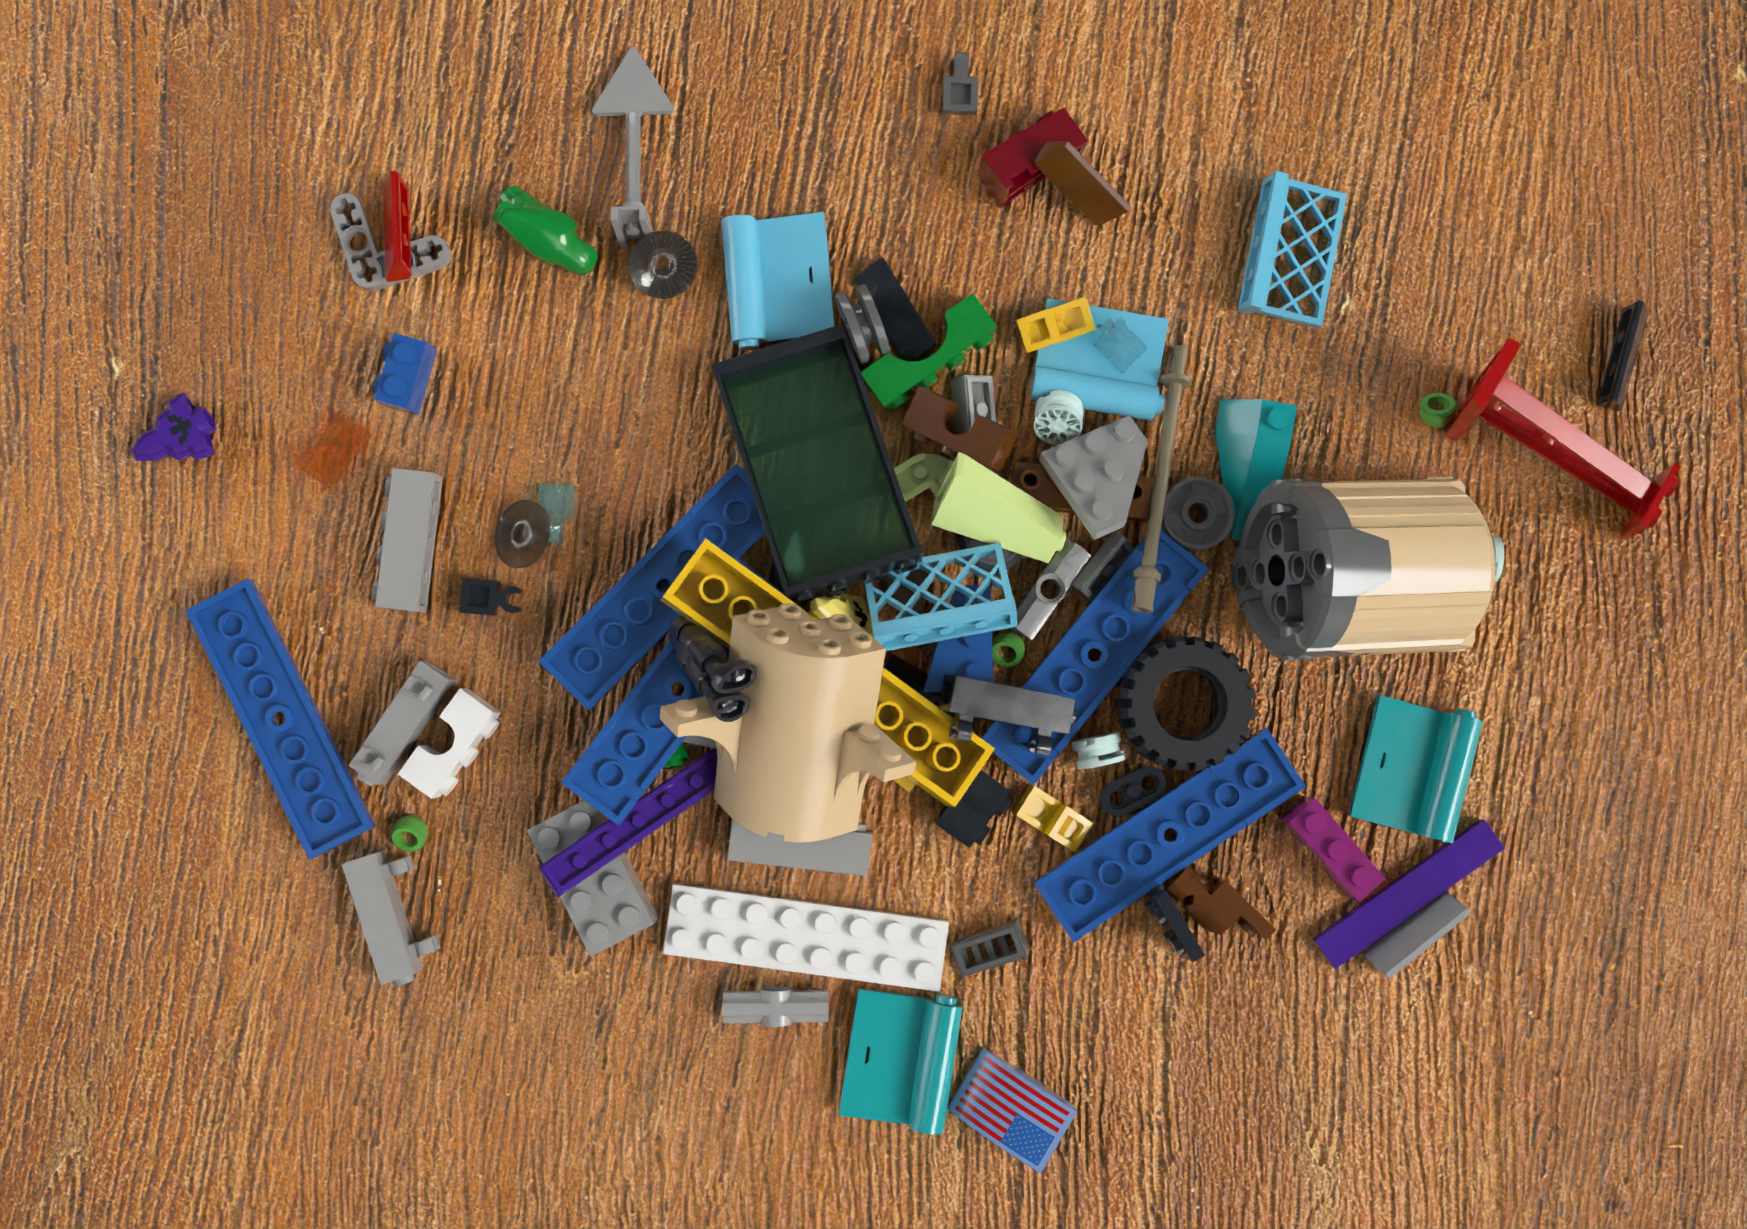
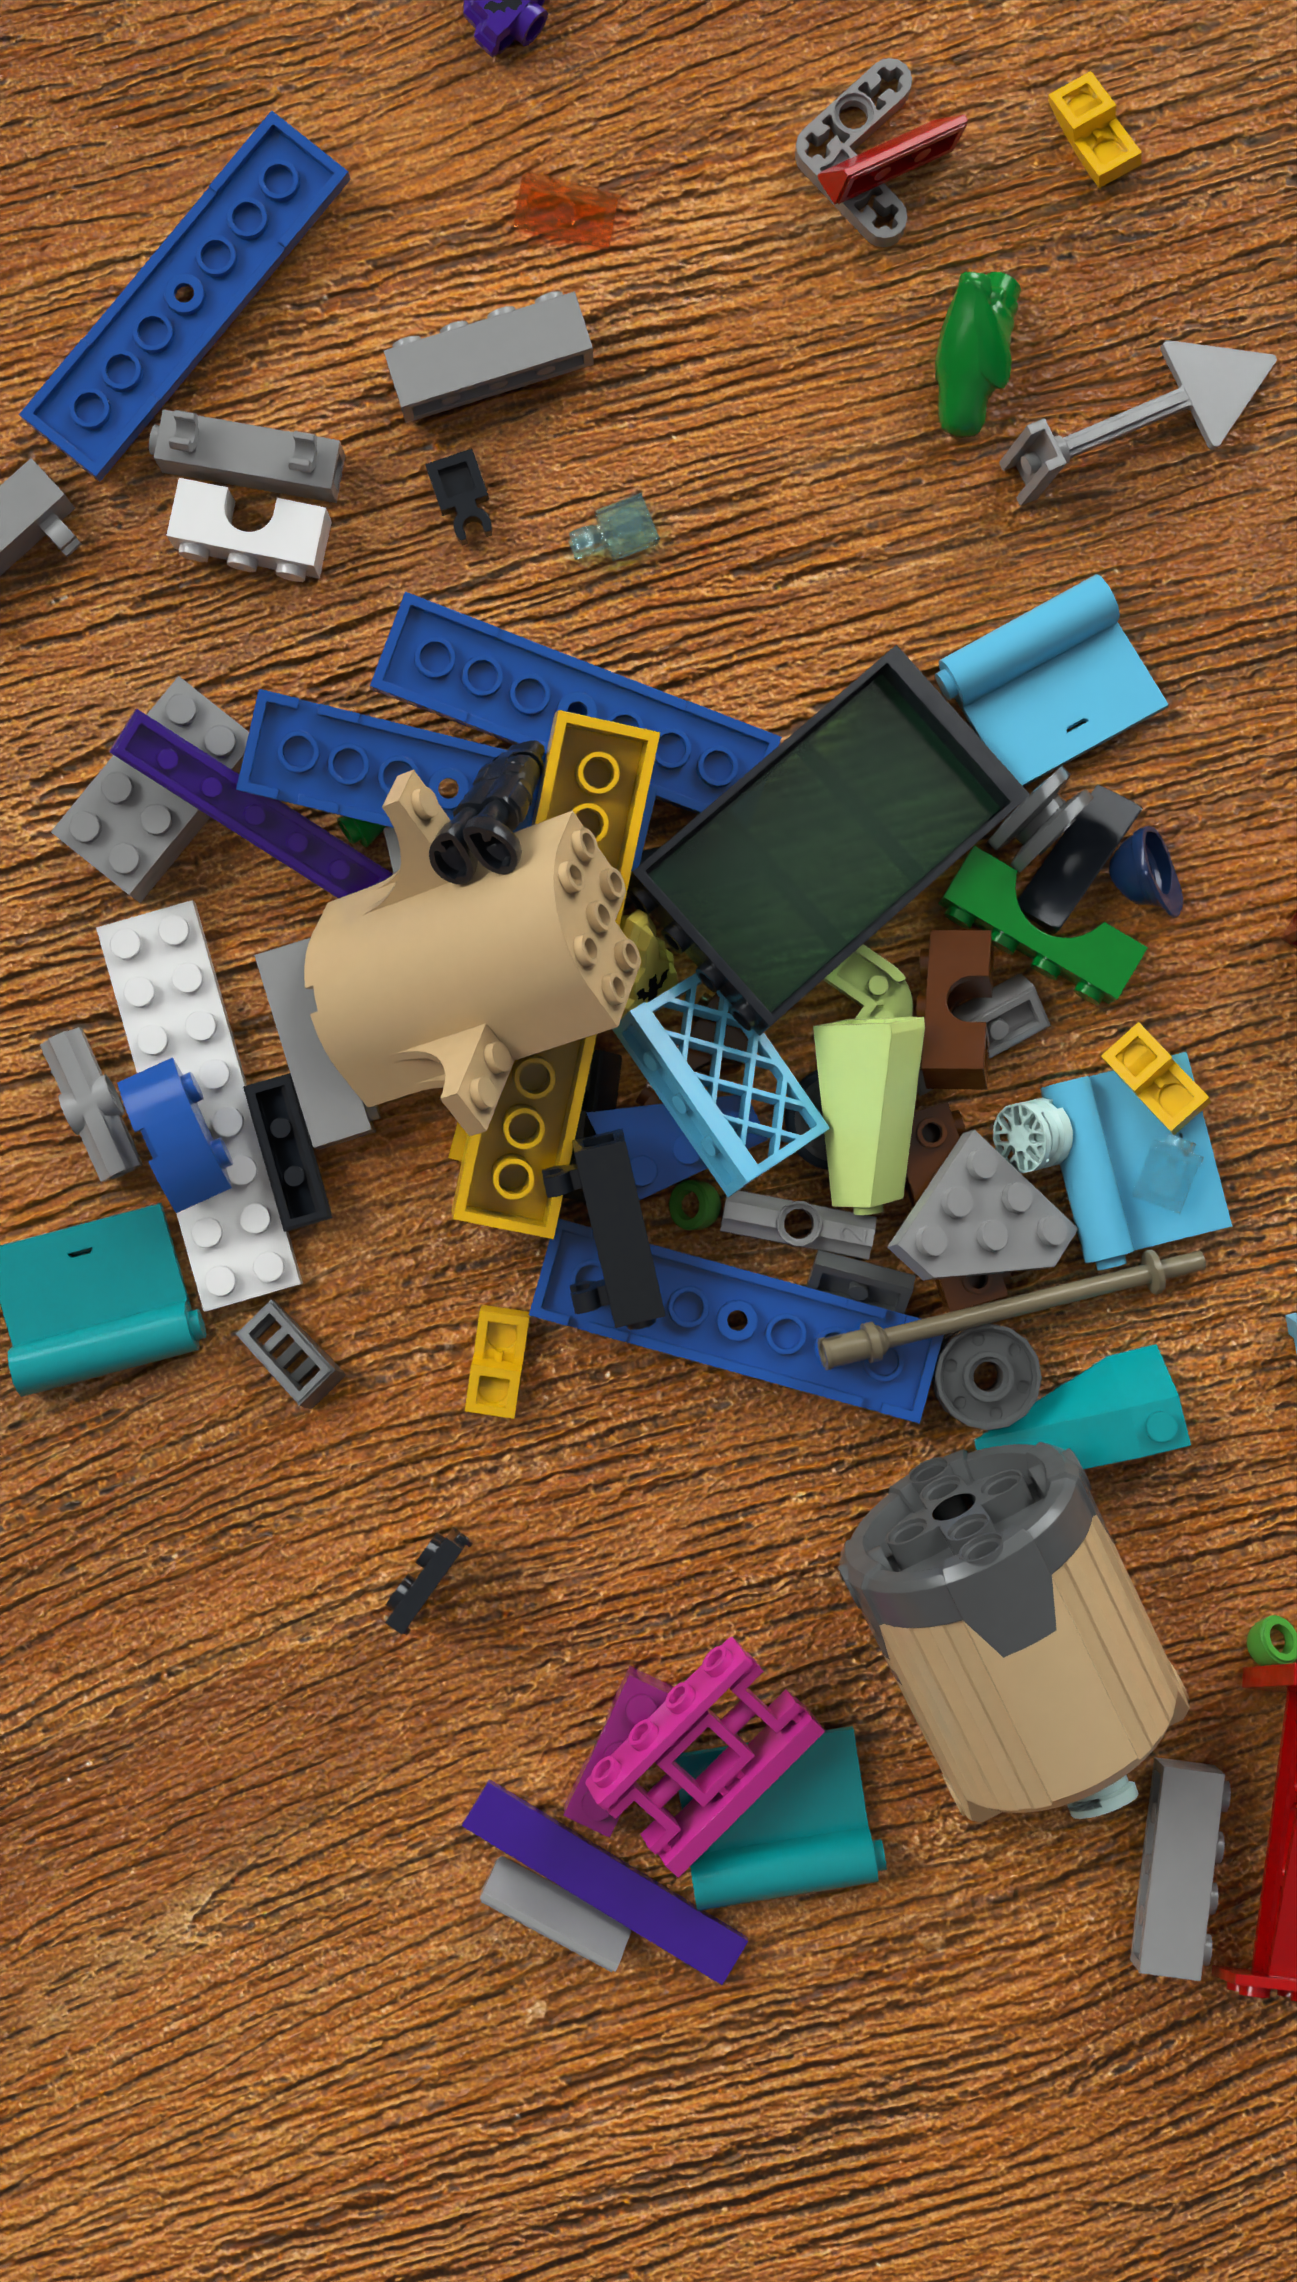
camera: 65 degrees right, 0 degrees up
(404, 373) = (706, 253): blue brick -> none
(413, 825) = (122, 530): bright green piece -> none
(436, 95) = (1093, 130): none -> yellow slope
(522, 534) = (564, 500): clear smoke dish -> none
(664, 280) = (985, 540): clear smoke dish -> none
(806, 960) = (183, 1151): none -> blue brick
(862, 893) = (288, 1153): none -> black slope
(923, 273) = (1146, 872): none -> dark blue hat
(974, 810) = (464, 1251): black brick -> none
(1012, 1109) = (90, 1474): slope -> none
(1100, 745) = (617, 1377): light aqua wheel -> none
(1131, 790) = (579, 1451): black plate -> none
(1135, 853) = (589, 1557): blue piece -> none
(1216, 905) = (475, 1627): reddish brown plate -> none
(1231, 712) = (736, 1538): black tyre -> none
(1383, 788) = (729, 1781): none -> dark pink fence
(1555, 531) = (1178, 1869): none -> light grey brick

